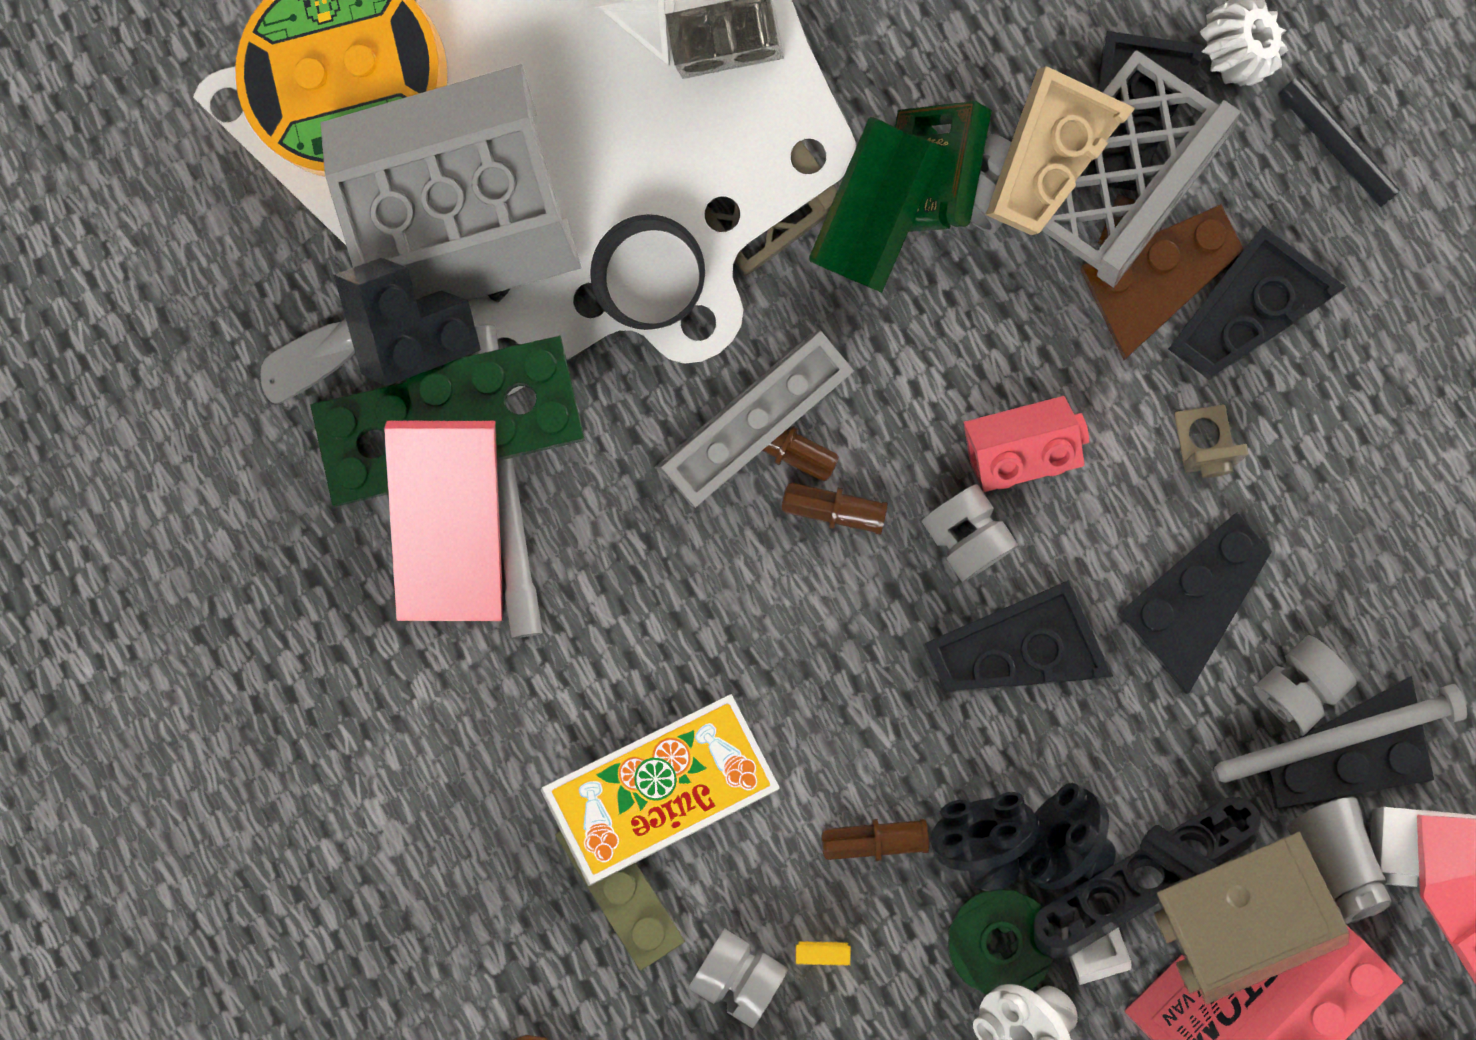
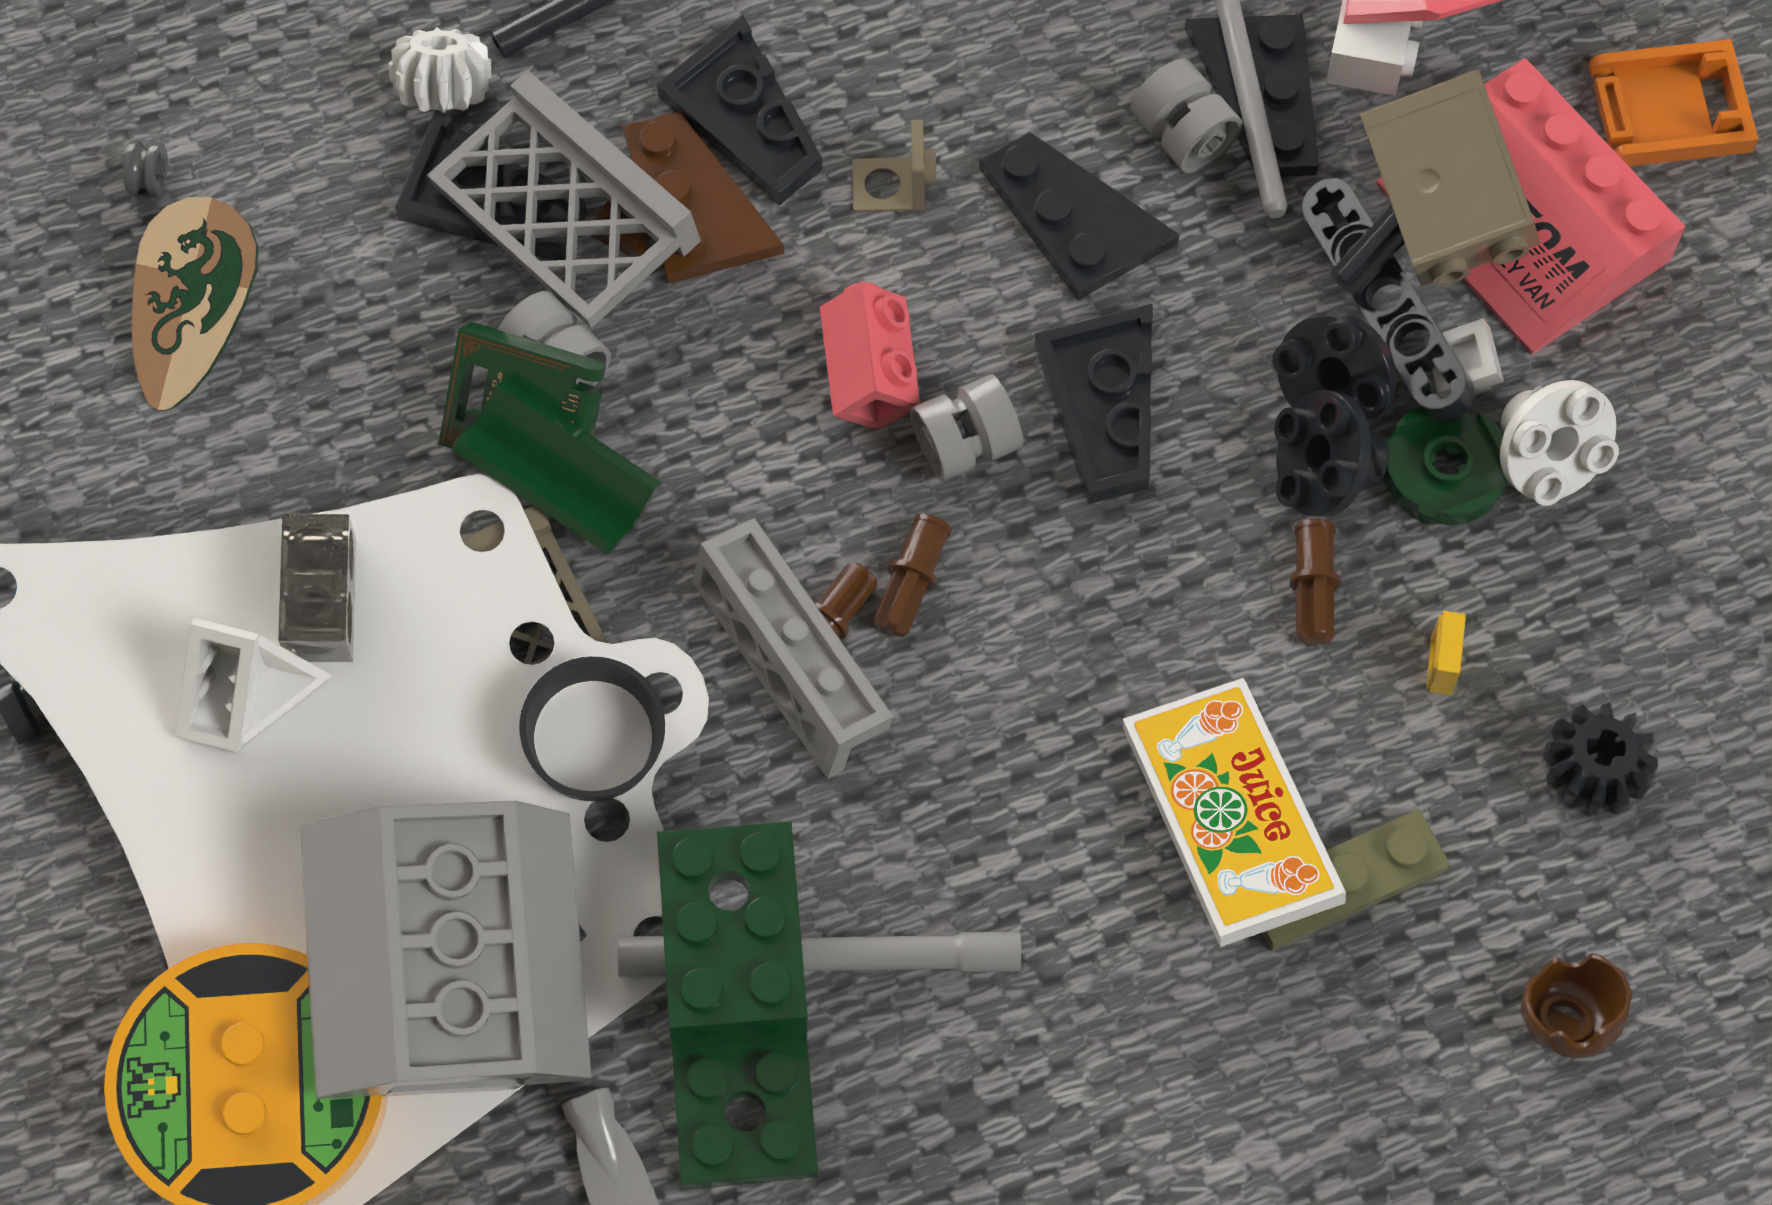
camera: 80 degrees left, 15 degrees down
(394, 330) = (609, 1021): black brick -> none
(444, 520) = (867, 1009): tile -> none
(738, 978) = (1476, 740): light grey wheel -> none
(1053, 144) = (529, 263): tan wing -> none
(1344, 858) = (1359, 92): light grey plant -> none

